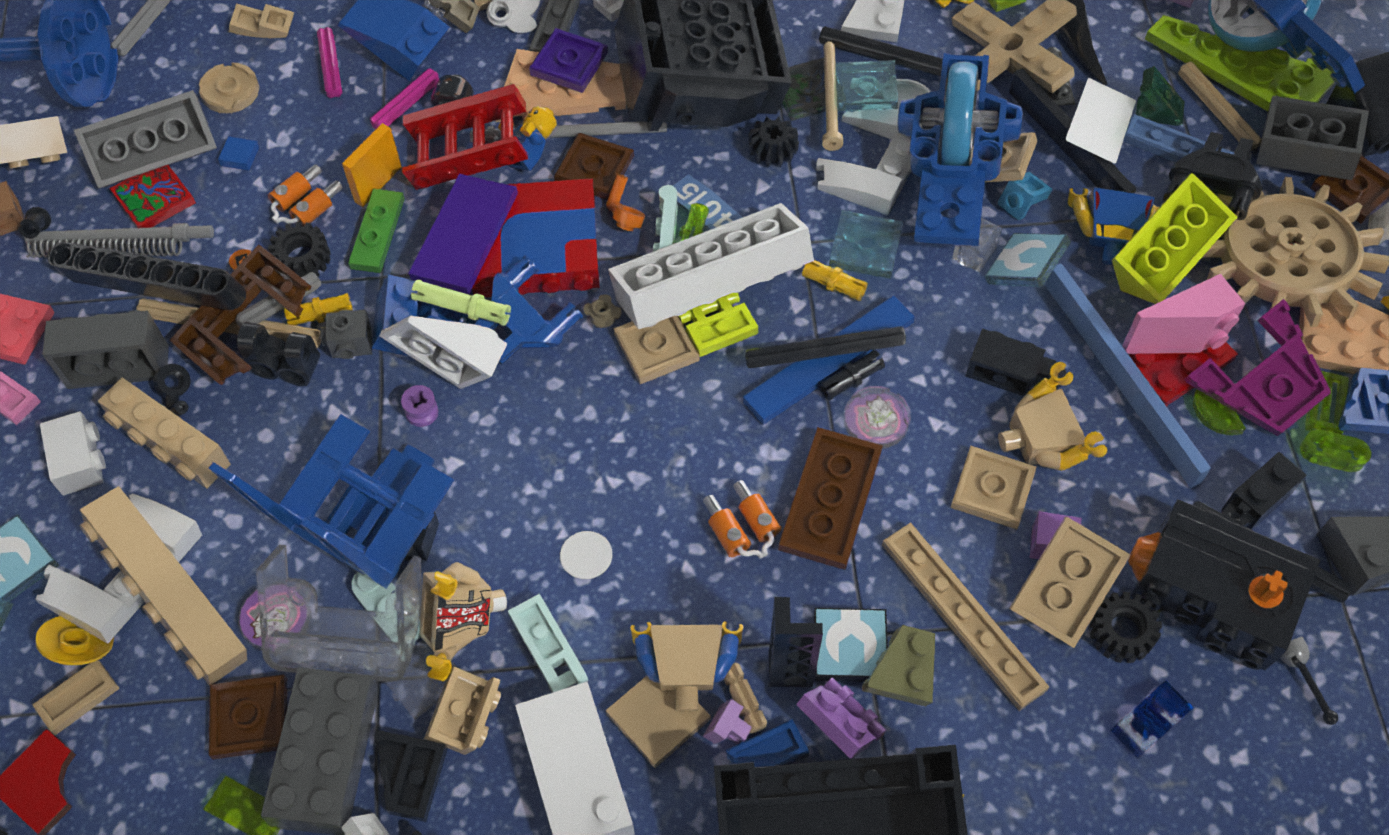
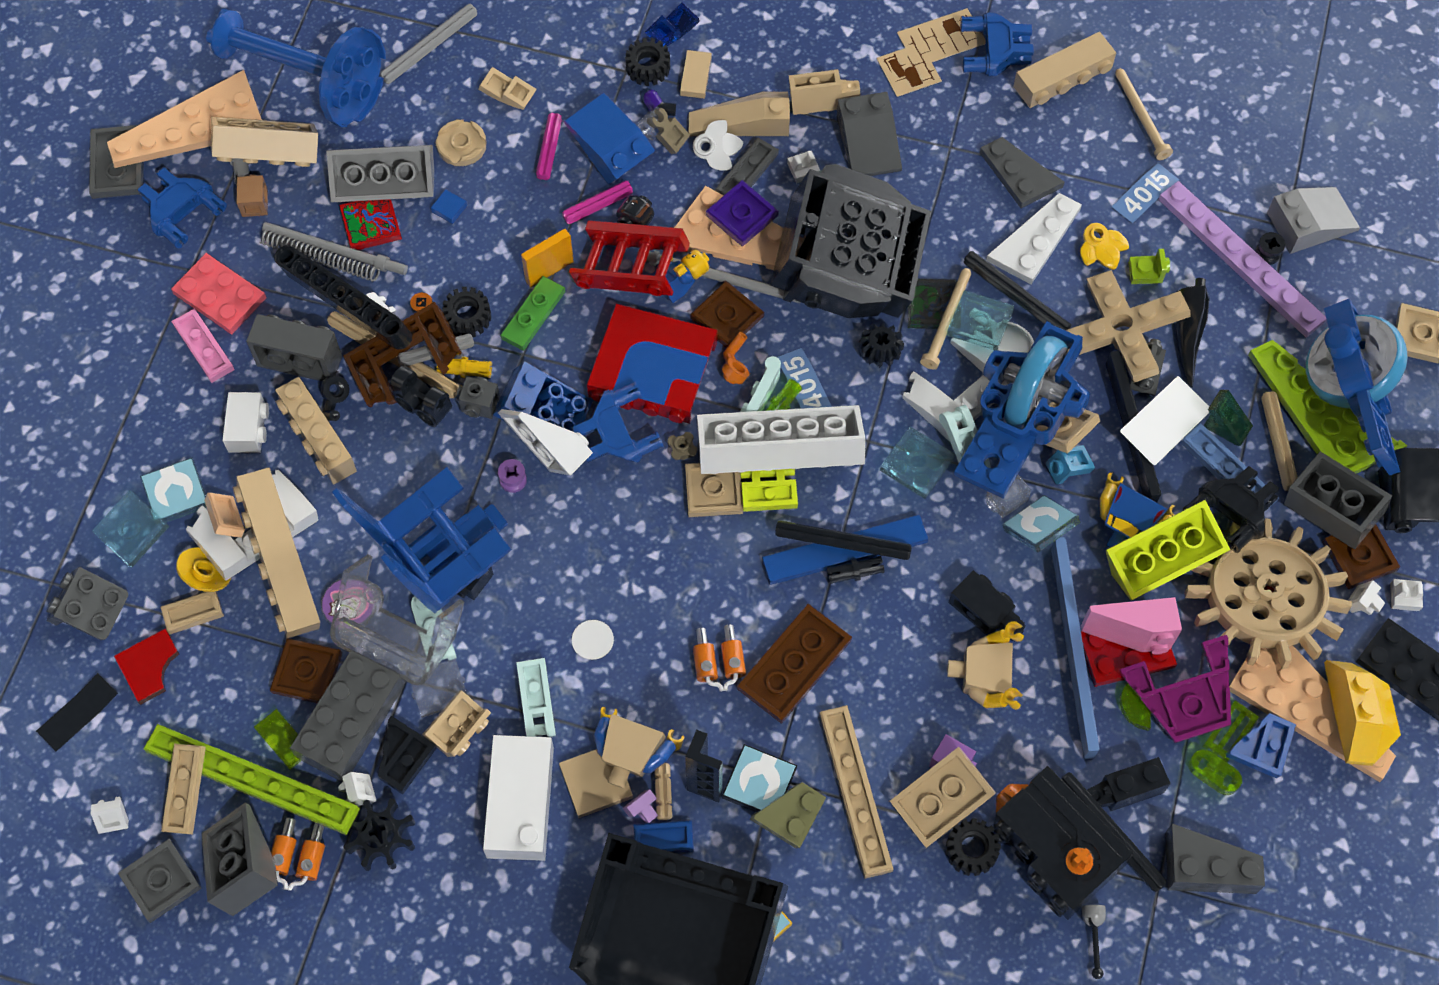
camera: 20 degrees right, 5 degrees up
(35, 220) = (276, 215): black pin -> none
(80, 565) = (224, 515): none -> light nougat tile
(293, 189) = (490, 274): orange piece -> none
(454, 613) = (476, 651): torso -> none
(463, 233) = (596, 344): dark purple tile -> none
(473, 306) = (579, 412): yellowish green pin -> none
(835, 279) = (879, 484): yellow pin -> none
(841, 717) = (720, 835): medium lavender plate -> none
(877, 416) = (861, 611): clear tile -> none
(903, 203) = (960, 438): none -> light aqua plate
(993, 487) = (926, 701): tan tile -> none
(1151, 719) = (959, 922): clear blue slope -> none

